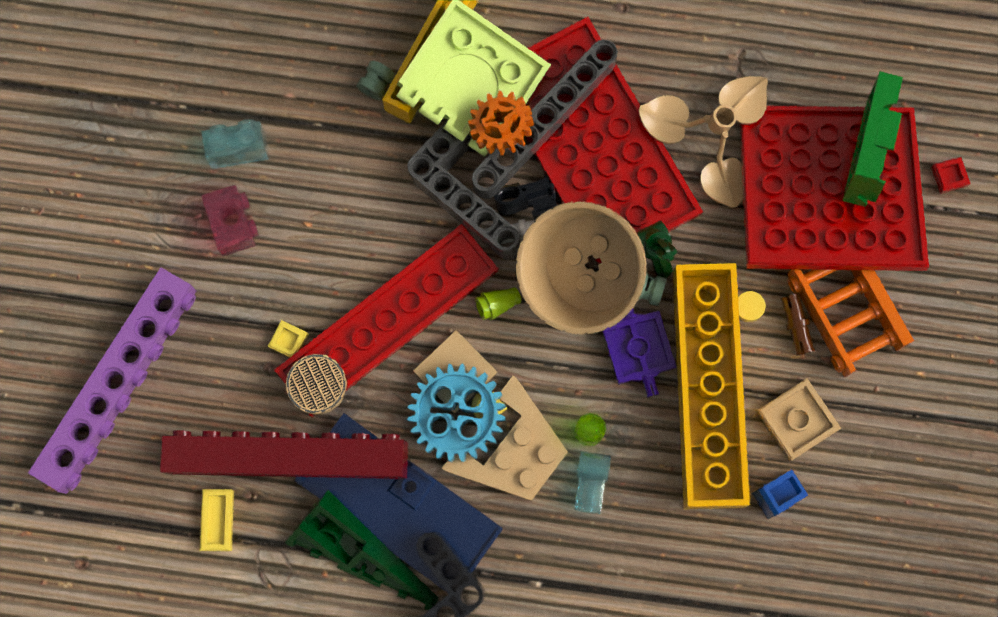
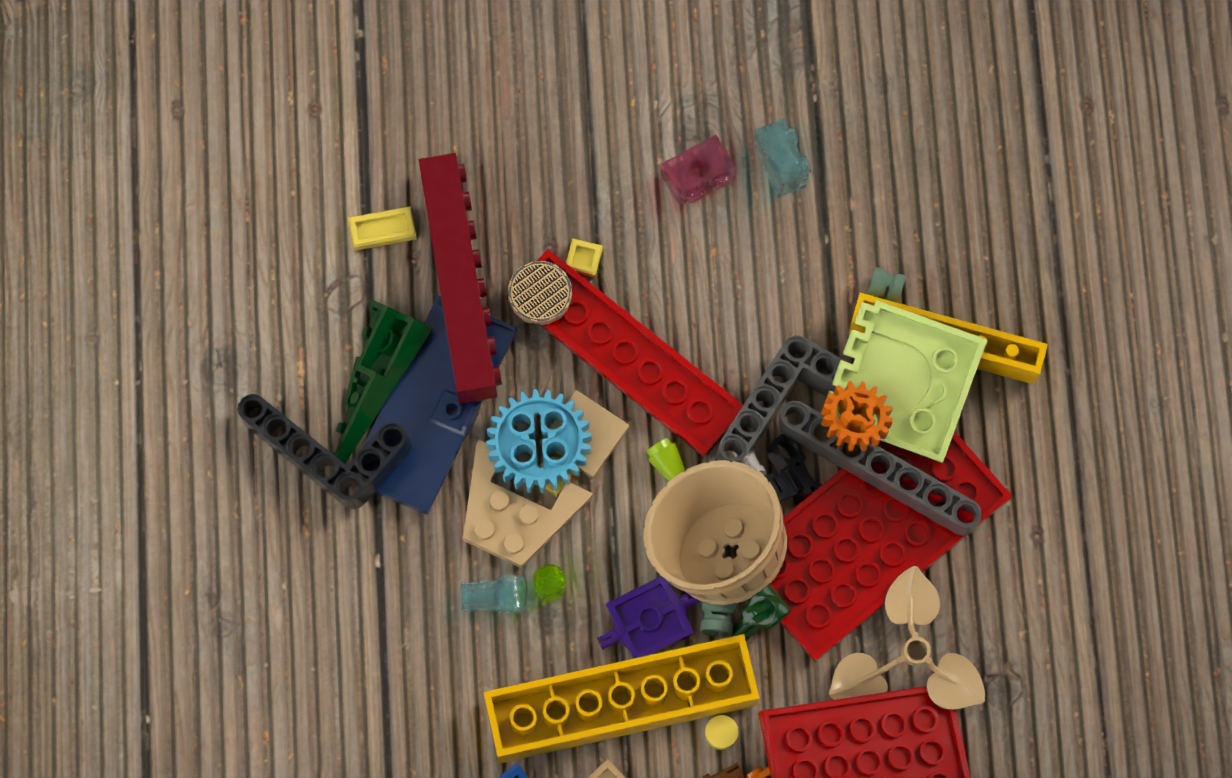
camera: 75 degrees right, 5 degrees down
(97, 388) = (524, 91): medium lavender brick -> none

